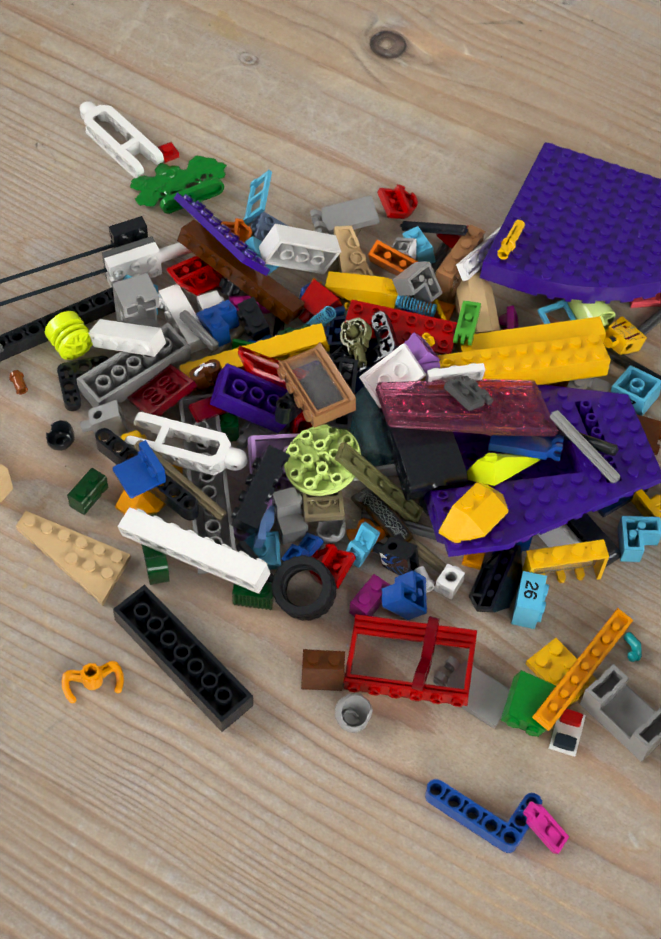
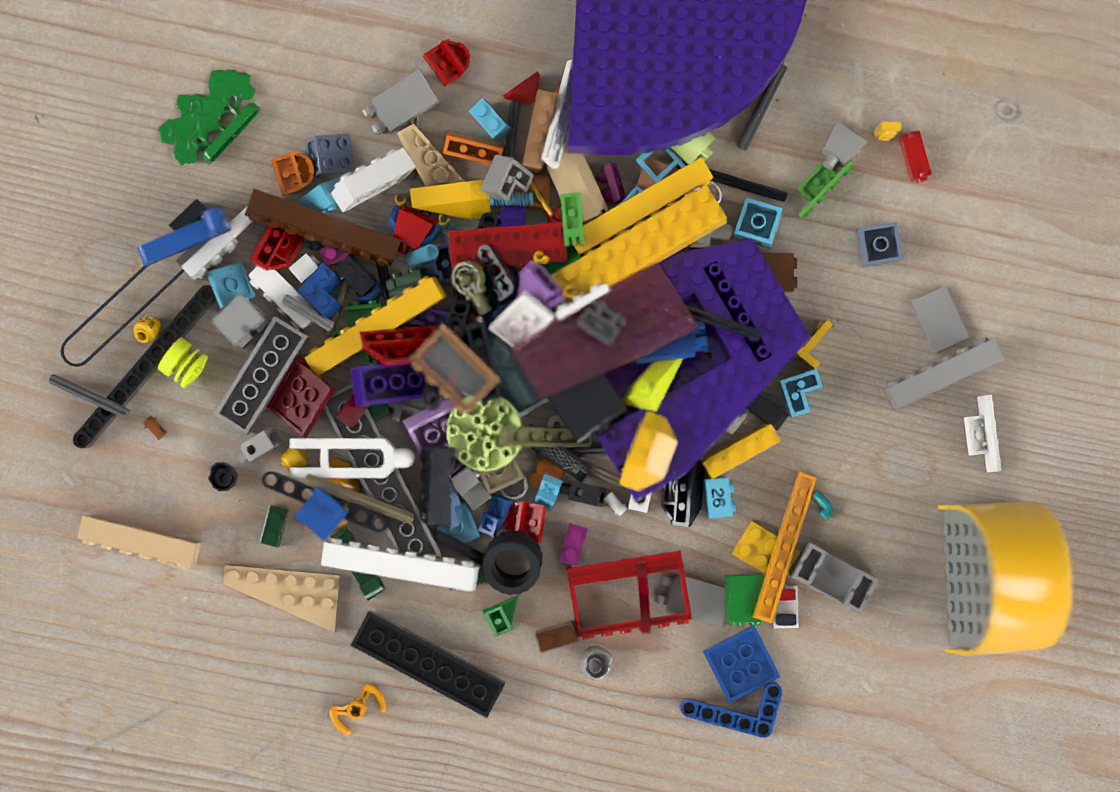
camera: 15 degrees left, 30 degrees up
(50, 303) = (147, 329): none -> yellow head
(74, 372) = (204, 396): black beam -> none
(122, 234) = (213, 225): none -> blue beam
(123, 153) = (79, 59): white piece -> none
(127, 337) = (247, 354): white brick -> none
(169, 152) = (180, 79): red plate -> none
(205, 375) = (338, 370): reddish brown piece -> none
(222, 233) = (286, 191): dark purple plate -> none
(266, 178) = (307, 110): medium azure window -> none
(273, 639) = (501, 615): none -> green slope
(406, 246) = (476, 130): light grey slope -> none
(406, 596) = (608, 532): blue brick -> none
(437, 228) = (500, 97): black axle -> none
(504, 768) = (741, 663): none -> blue plate
(508, 244) = (588, 111): yellow pin -> none
(545, 827) = (791, 710): dark pink hinge -> none
(585, 447) = (728, 336): light grey axle -> none
(624, 337) = (729, 159): yellow torso -> none

